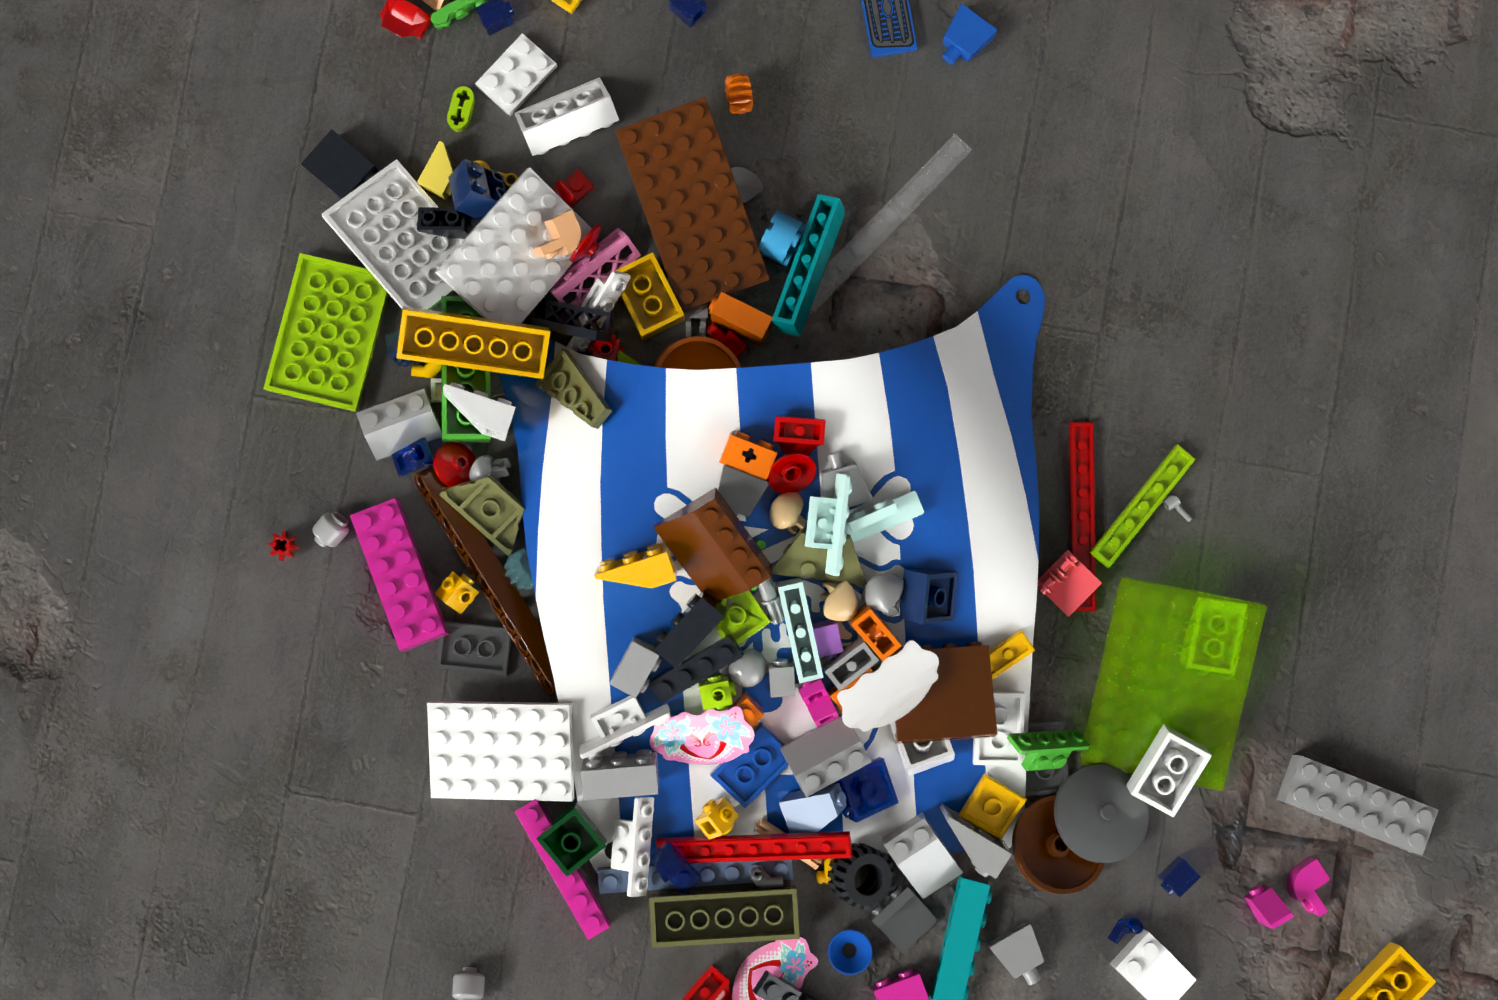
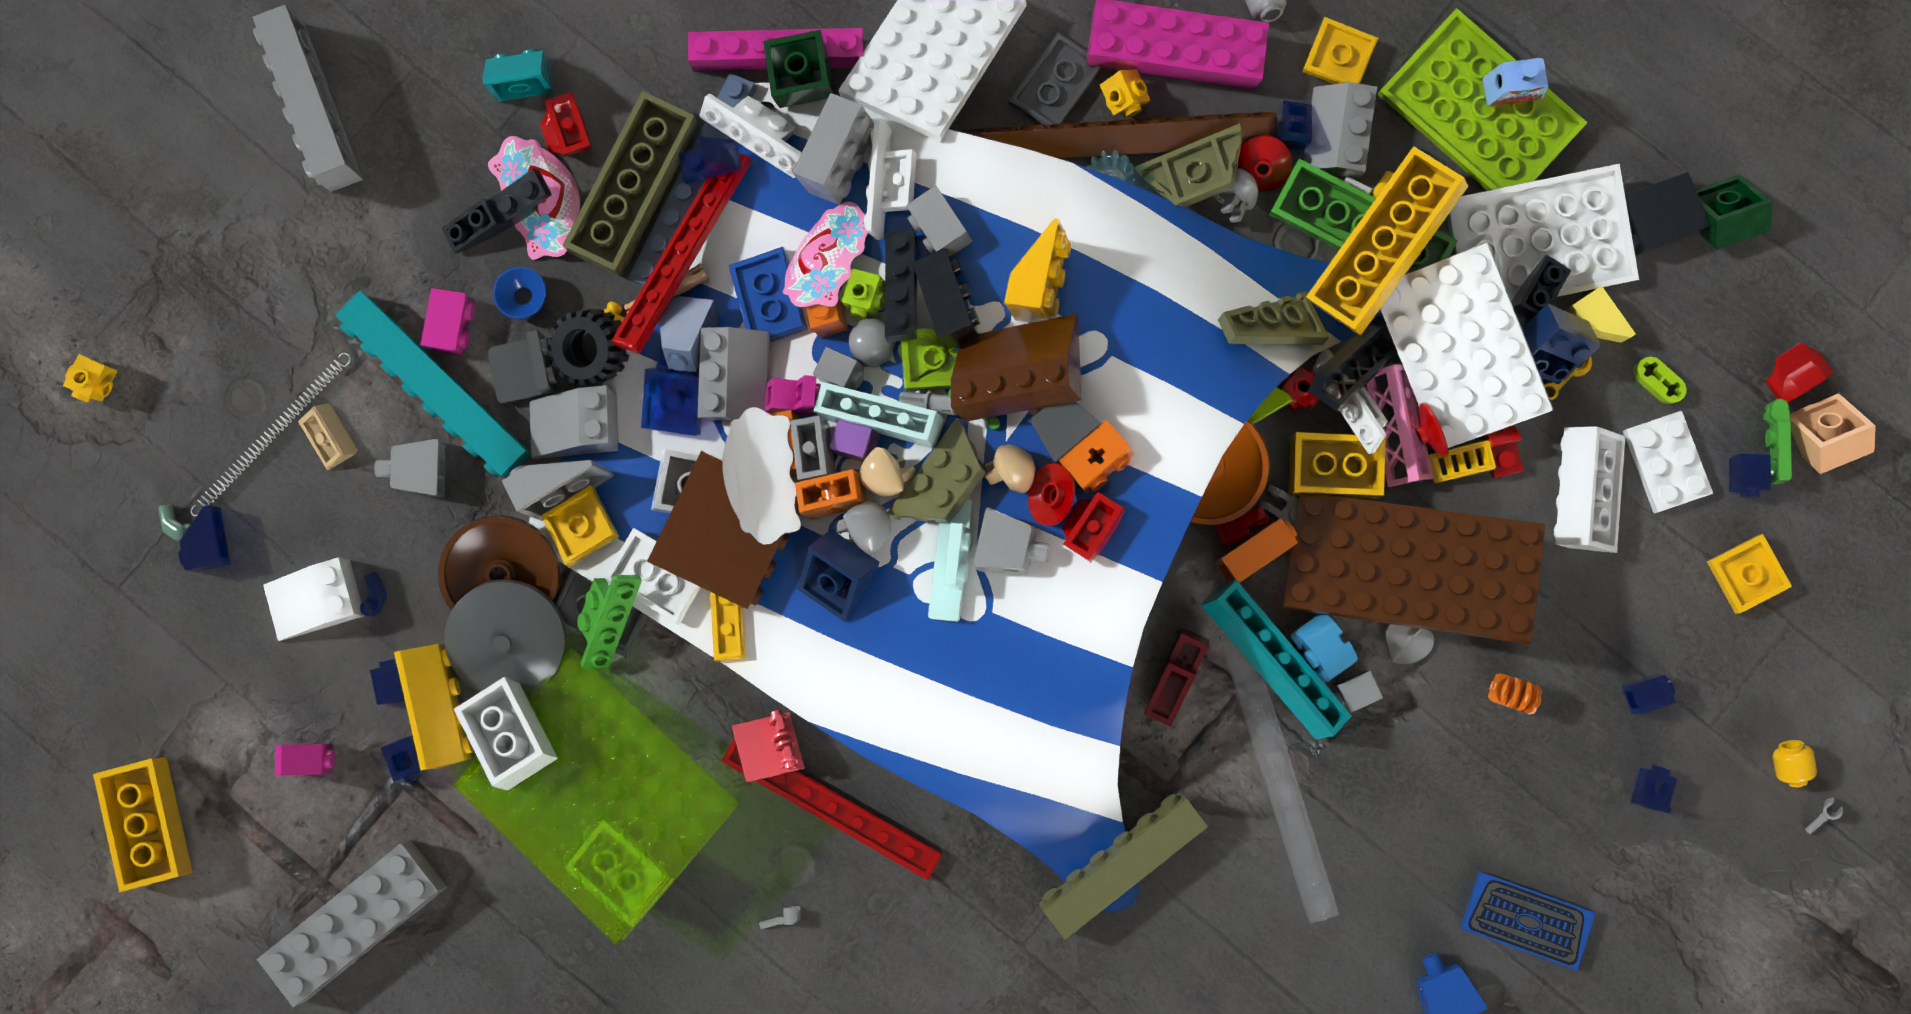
camera: 130 degrees right, 0 degrees up
(299, 315) = (1520, 82): none -> light blue torso
(310, 119) = (1734, 211): none -> dark green slope
(342, 454) = (1339, 53): none -> yellow plate
(487, 415) = (1293, 217): white slope -> none
(564, 233) = (1455, 409): light nougat brick -> none
(581, 199) = (1486, 458): none -> yellow slope
(717, 818) = (734, 229): yellow brick -> none
(764, 880) = (642, 245): dark grey arm -> none
(797, 200) = (1357, 691): none -> light grey brick
(827, 523) = (975, 499): light aqua bracket -> none
(856, 328) = (1176, 676): none -> dark red slope
(1007, 294) = (1122, 864): none -> olive brick
(1142, 506) = (805, 880): lime tile -> none
(1178, 836) = (430, 704): none -> yellow slope
(1229, 843) = (395, 758): none -> clear blue brick
(1303, 882) = (308, 818): dark pink brick -> none

